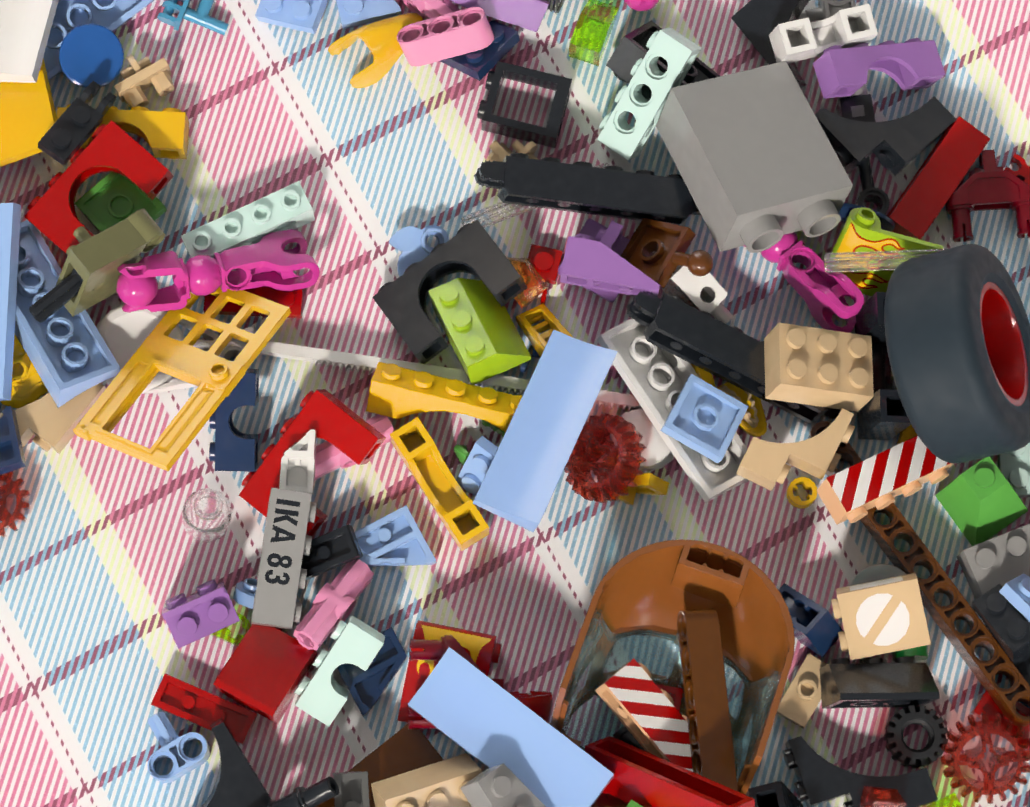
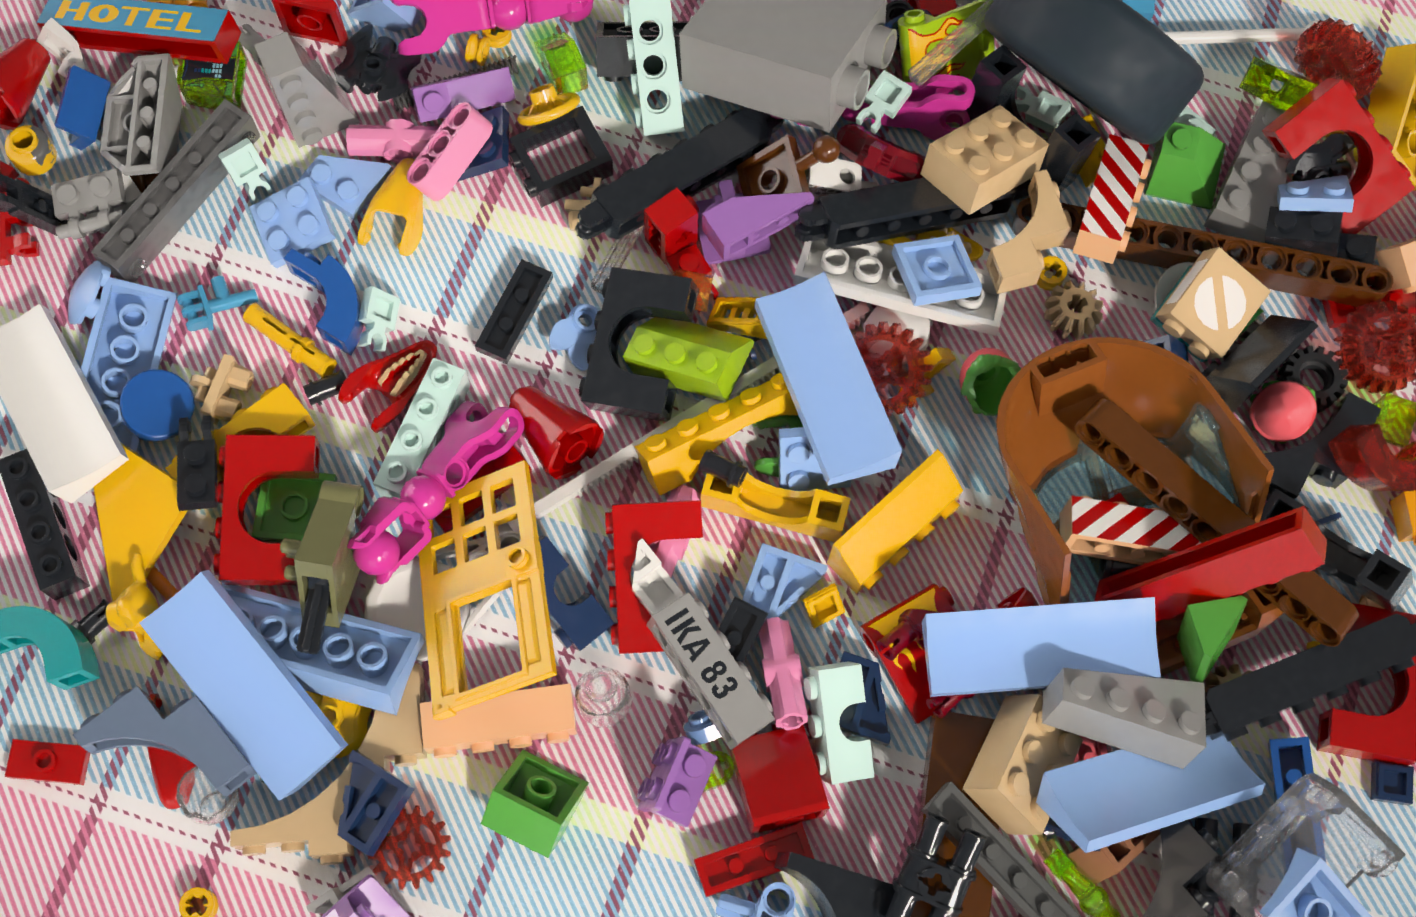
camera: 45 degrees left, 5 degrees down
(98, 544) = (534, 803): none -> bright green slope
(132, 478) = (505, 719): none -> light nougat brick
(214, 138) = (324, 387): none -> black pin
(225, 116) = (301, 349): none -> yellow pin
(267, 170) = (394, 376): none -> red animal
(278, 87) = (340, 320): none -> blue arch
(295, 116) = (380, 314): none -> light aqua plate
(336, 304) = (556, 431): none -> red cone
(390, 192) = (514, 311): none -> black plate
(408, 584) = (823, 605): none -> yellow slope
(418, 431) = (723, 468): none -> black pin
(508, 572) = (895, 523): none -> yellow slope
(546, 58) = (547, 105): none -> yellow piece
(553, 222) = (671, 224): none -> red brick
(672, 522) = (985, 378): none -> bright green hair
(748, 296) = (879, 154): none -> dark red connector
(783, 522) = (1066, 319): none -> tan gear
(790, 259) = (884, 97): none -> light aqua plate
(865, 738) = (1283, 410): none -> coral hair

